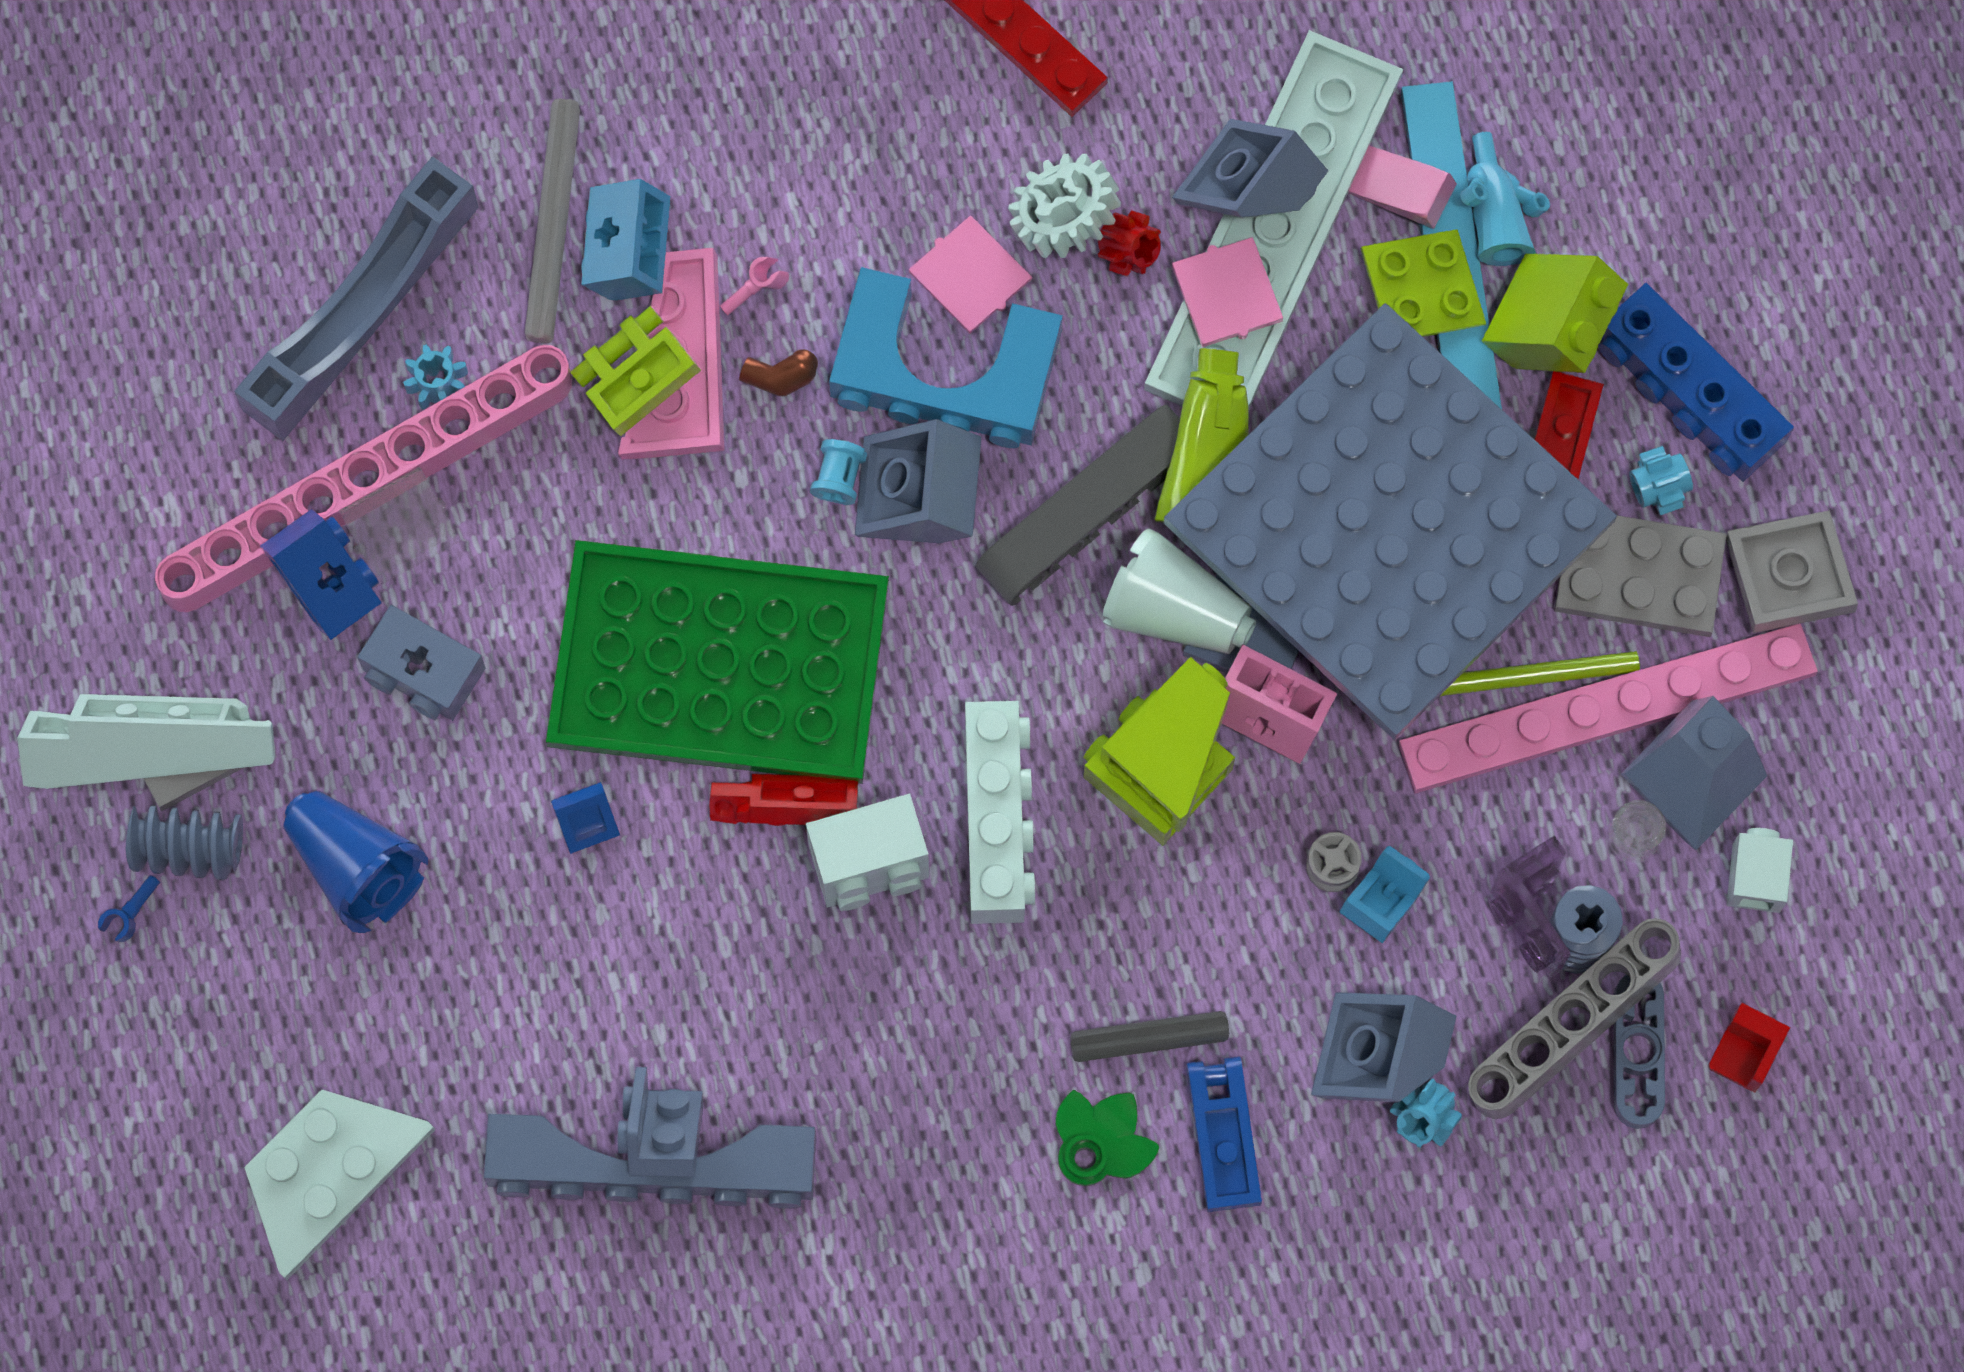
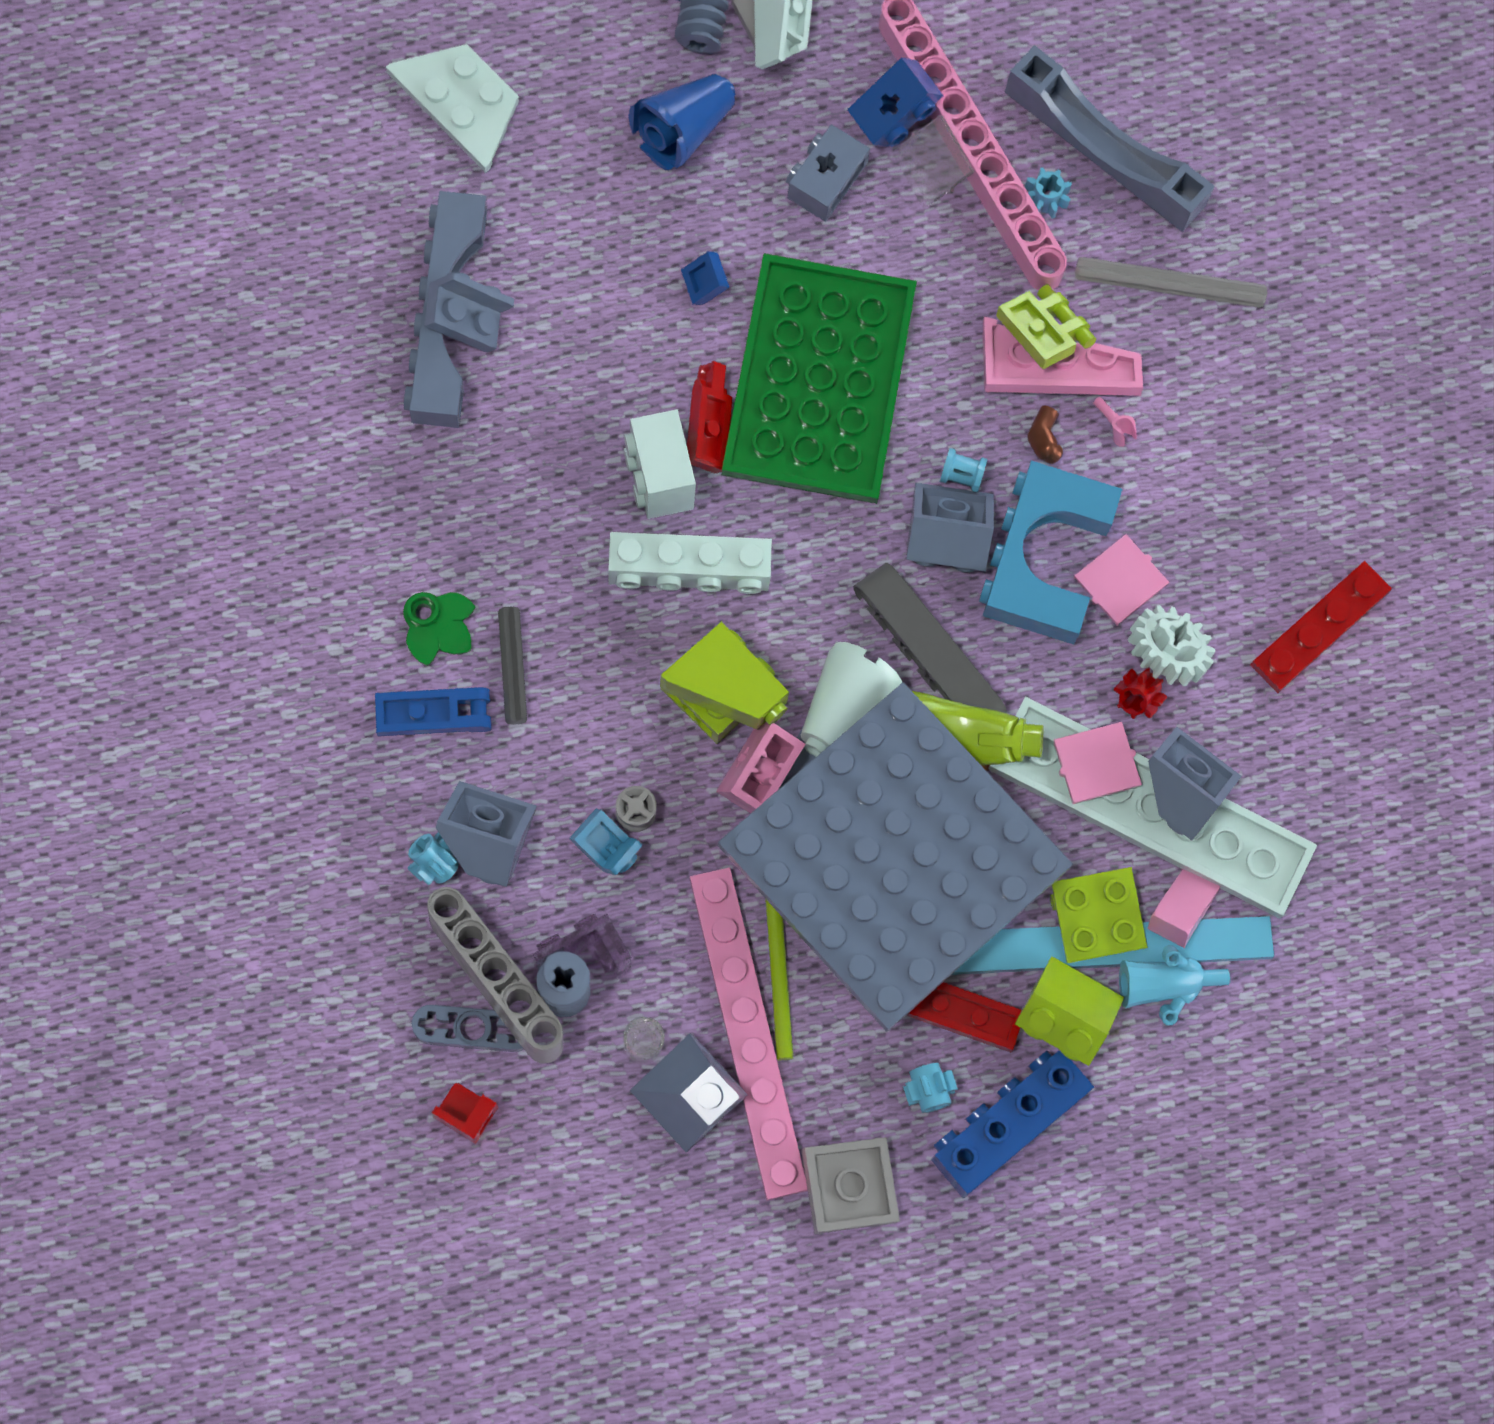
camera: 85 degrees right, 0 degrees up
(625, 240) = (1150, 326): dark azure brick -> none
(1647, 577) = (856, 1071): light grey plate -> none
(1760, 870) = (606, 1134): light aqua brick -> none

